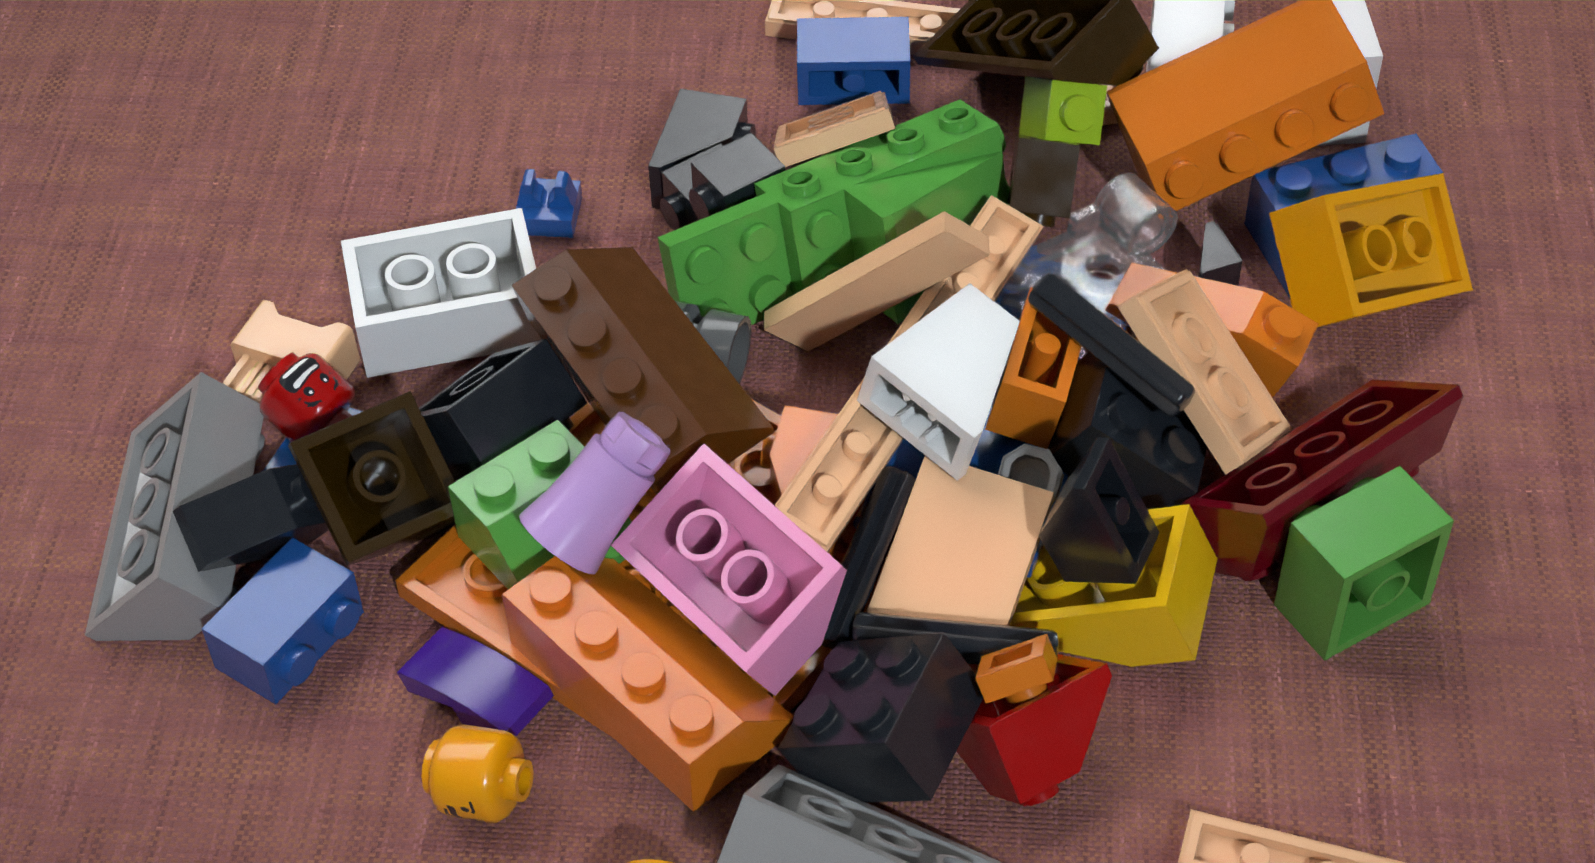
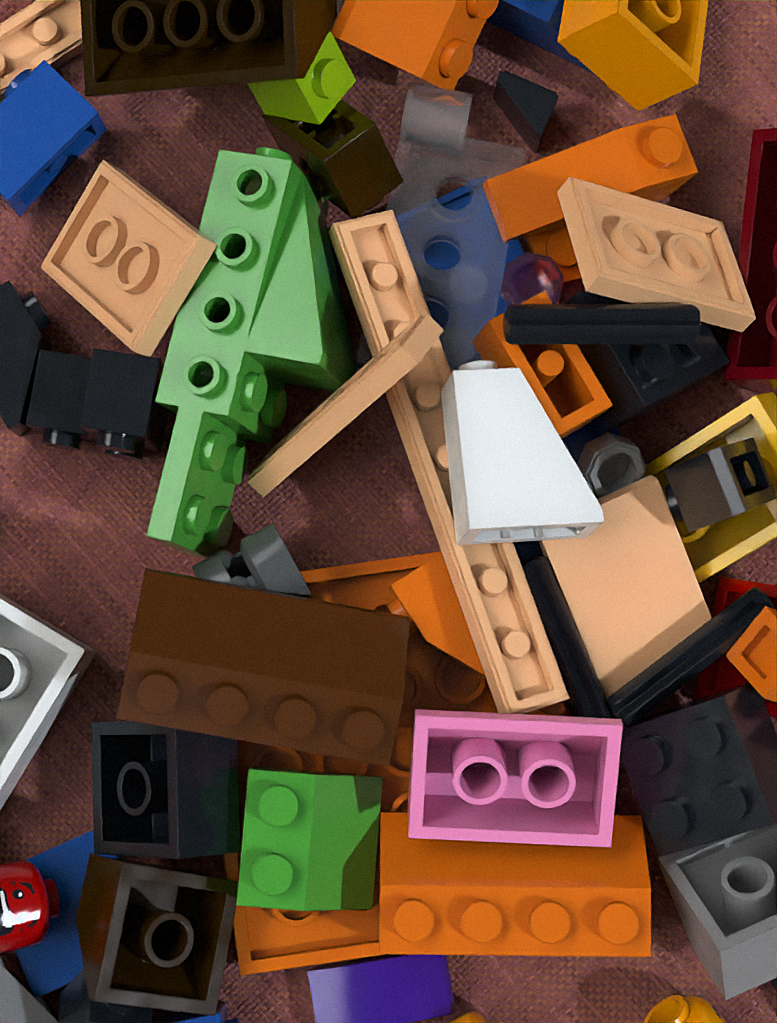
camera: 50 degrees left, 35 degrees up
(596, 493) = (373, 829): lavender plant -> none

